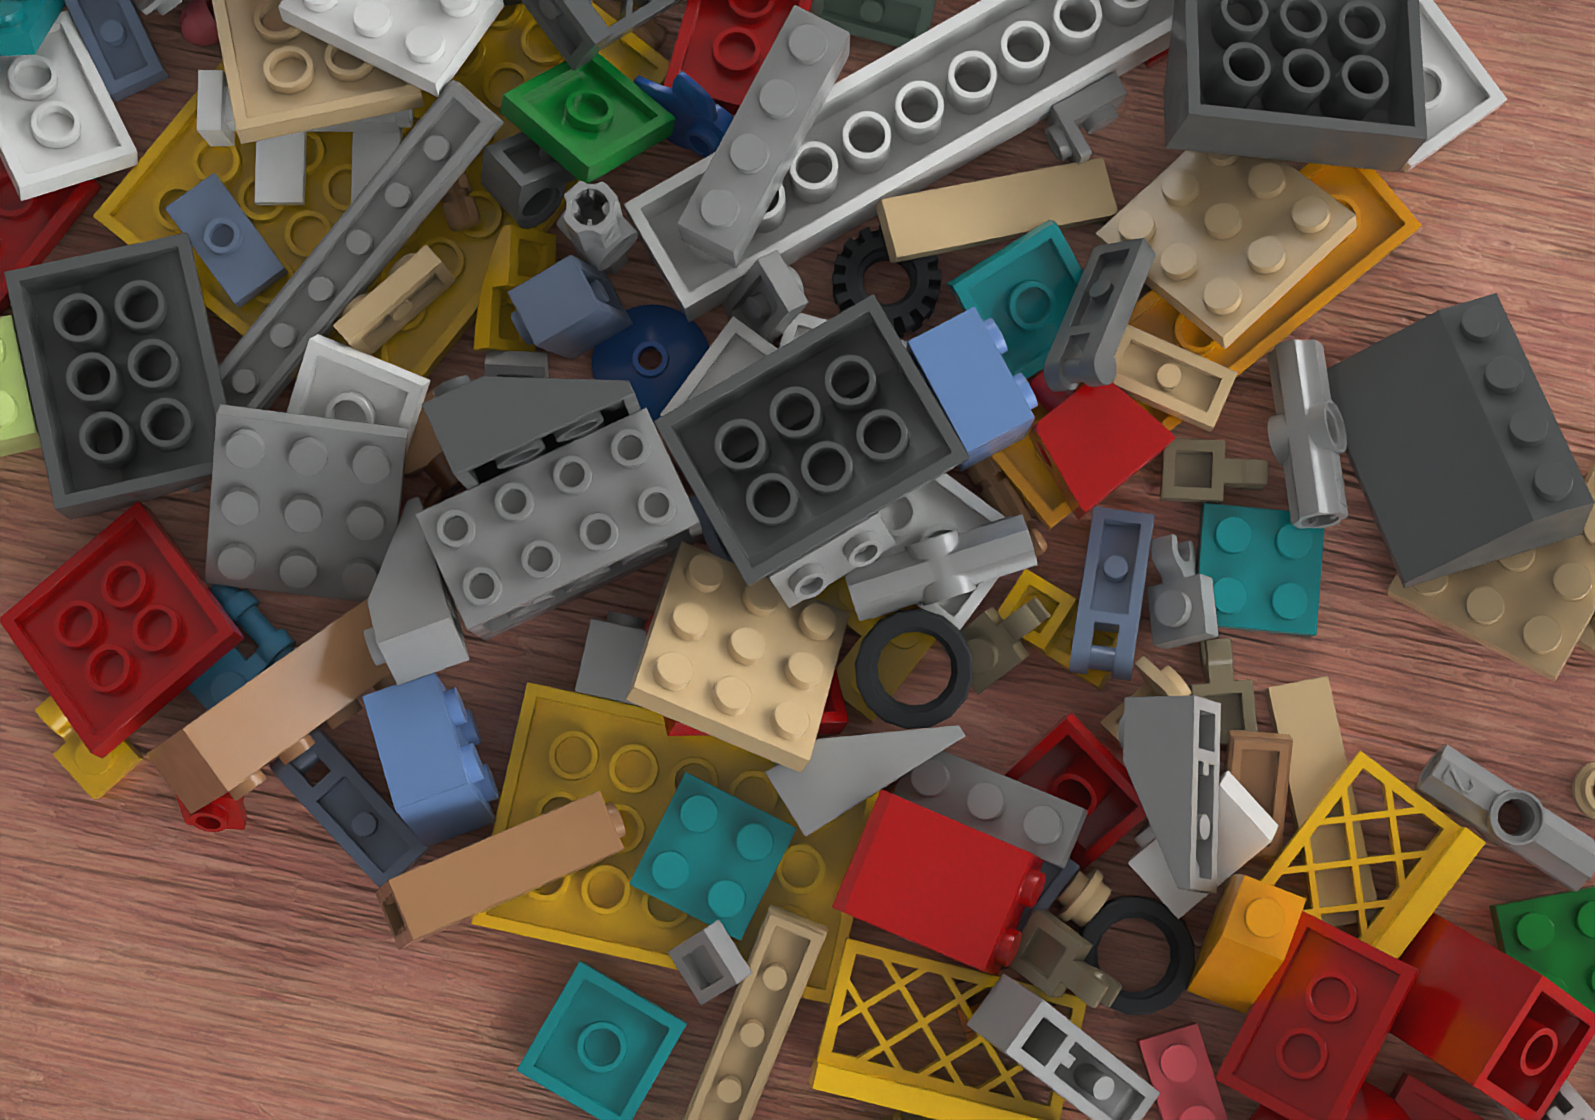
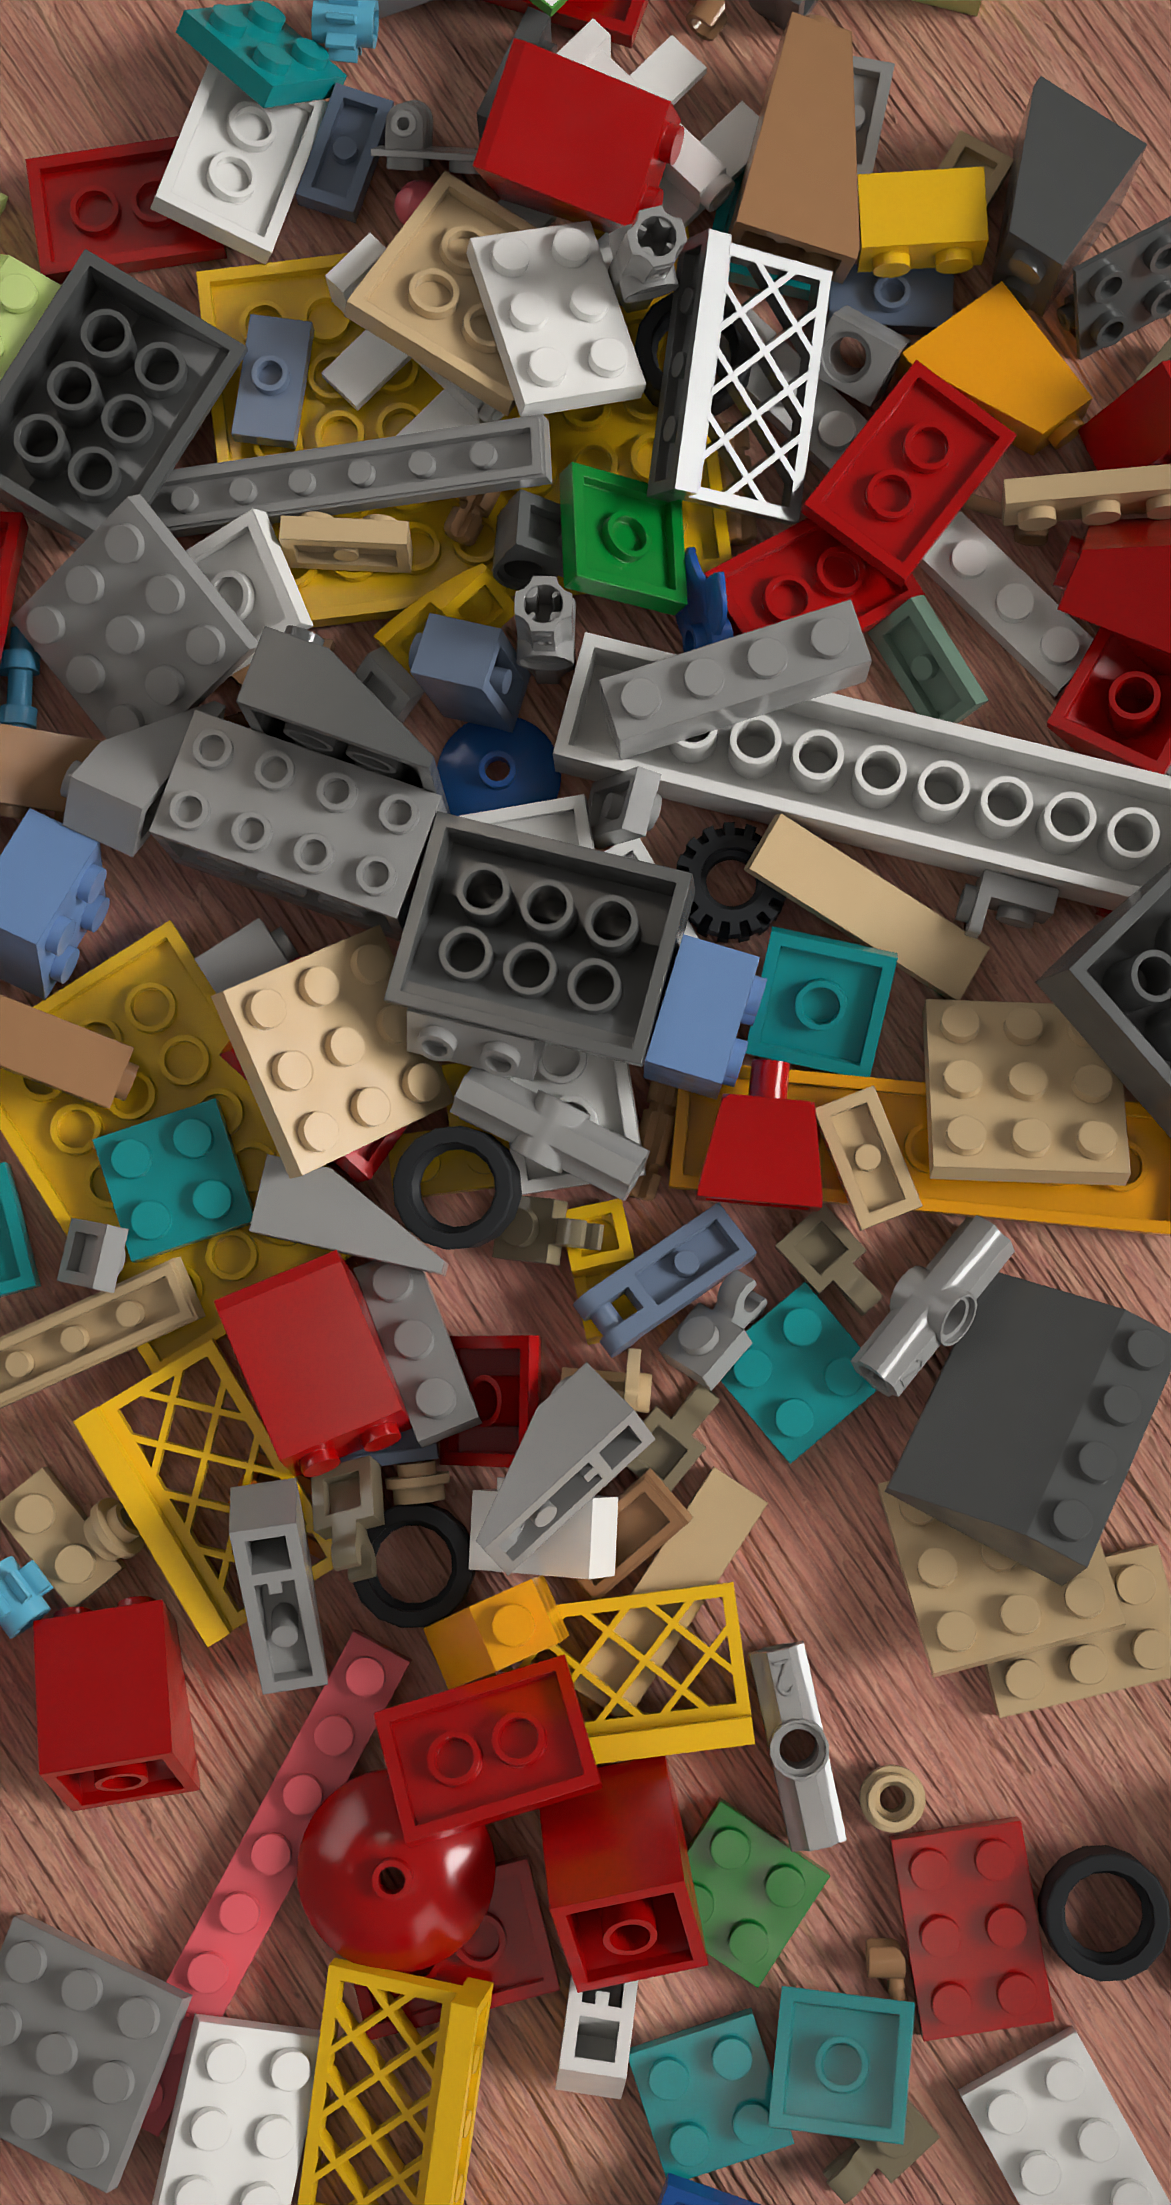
camera: 50 degrees right, 0 degrees up
(1098, 316) = (856, 1059): dark grey plate -> none

